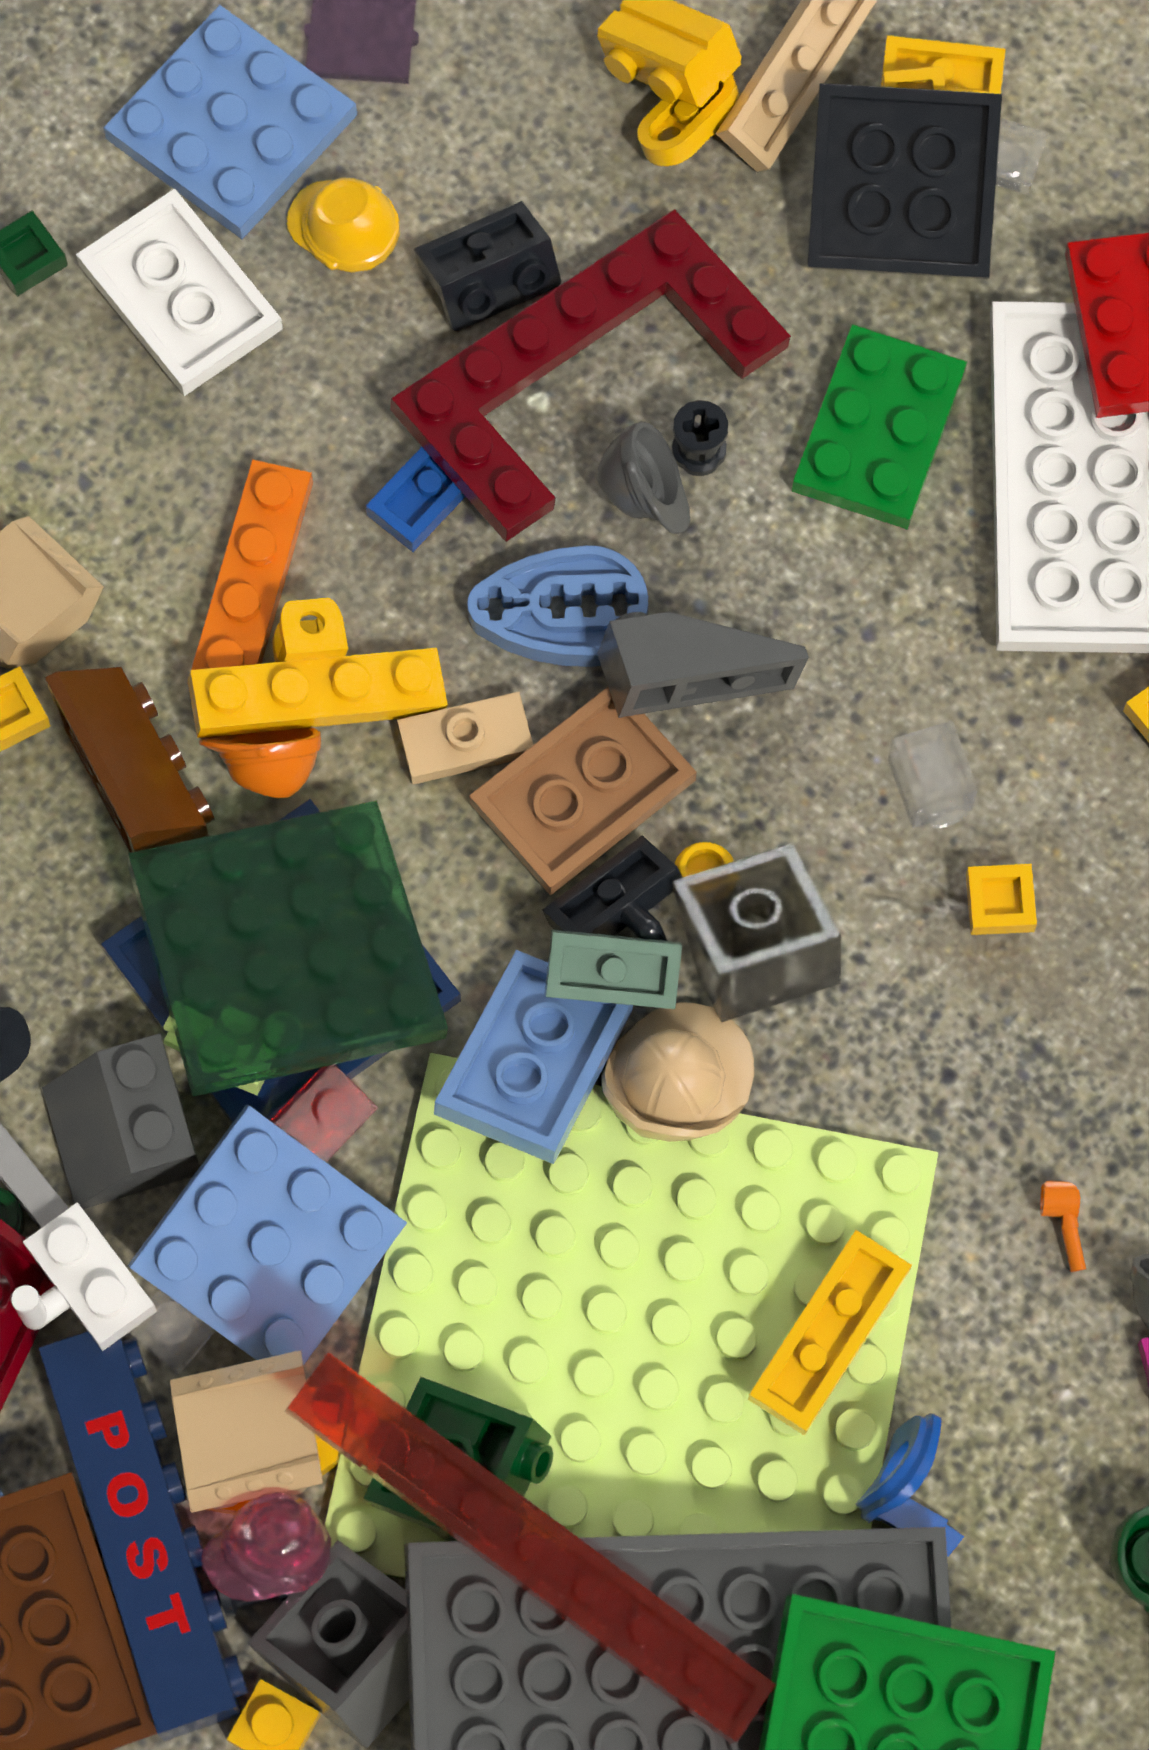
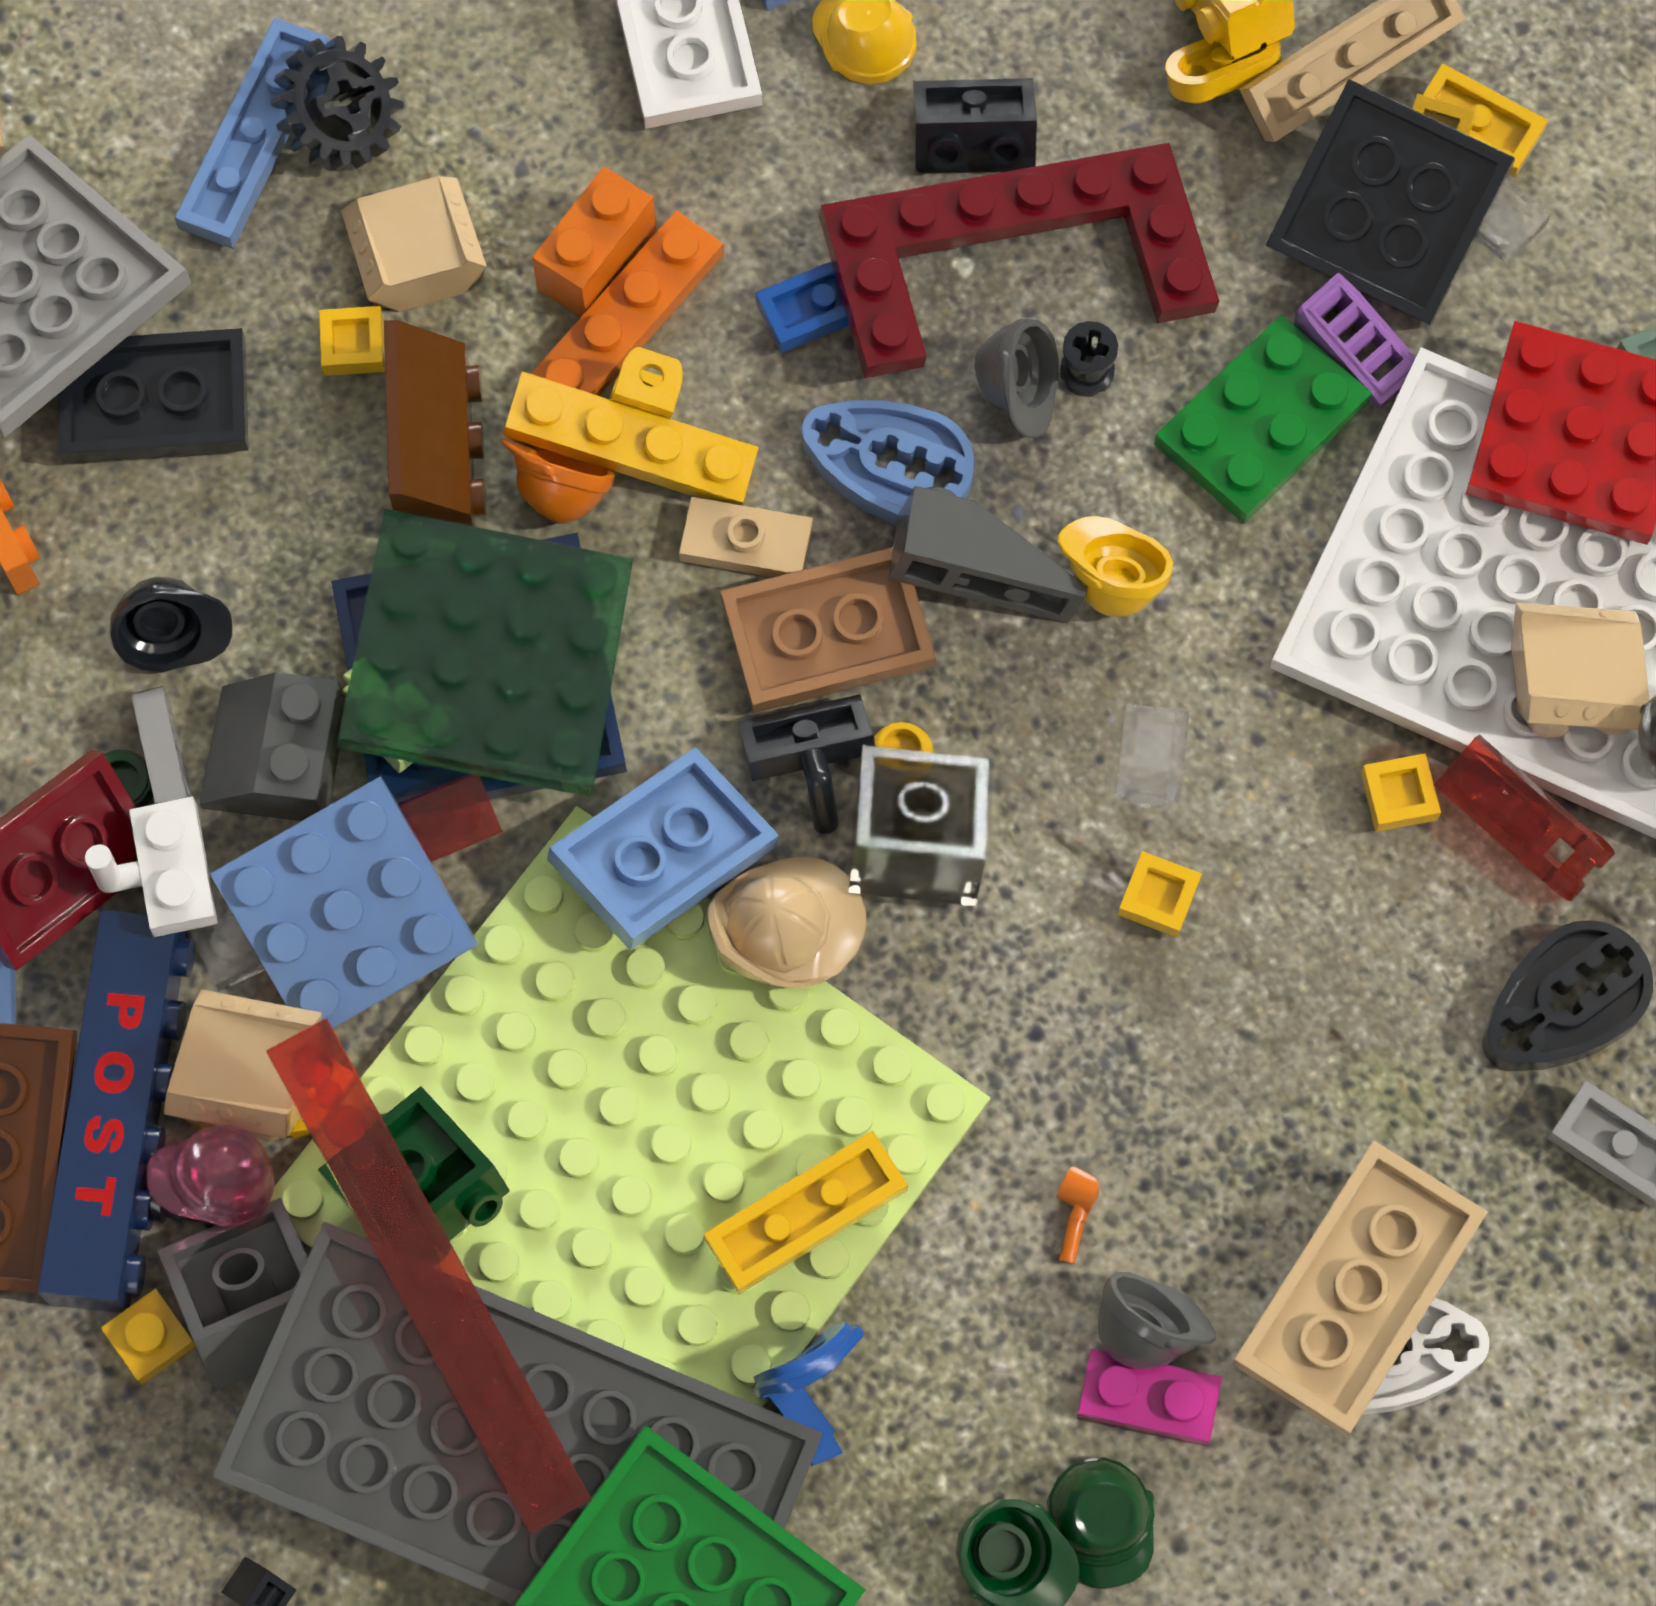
camera: 25 degrees right, 0 degrees up
(193, 521) = (594, 241): none -> orange brick
(613, 969) = (768, 800): sand green plate -> none
(820, 614) = (1116, 564): none -> yellow hat
(919, 293) = (1355, 310): none -> medium lavender slope

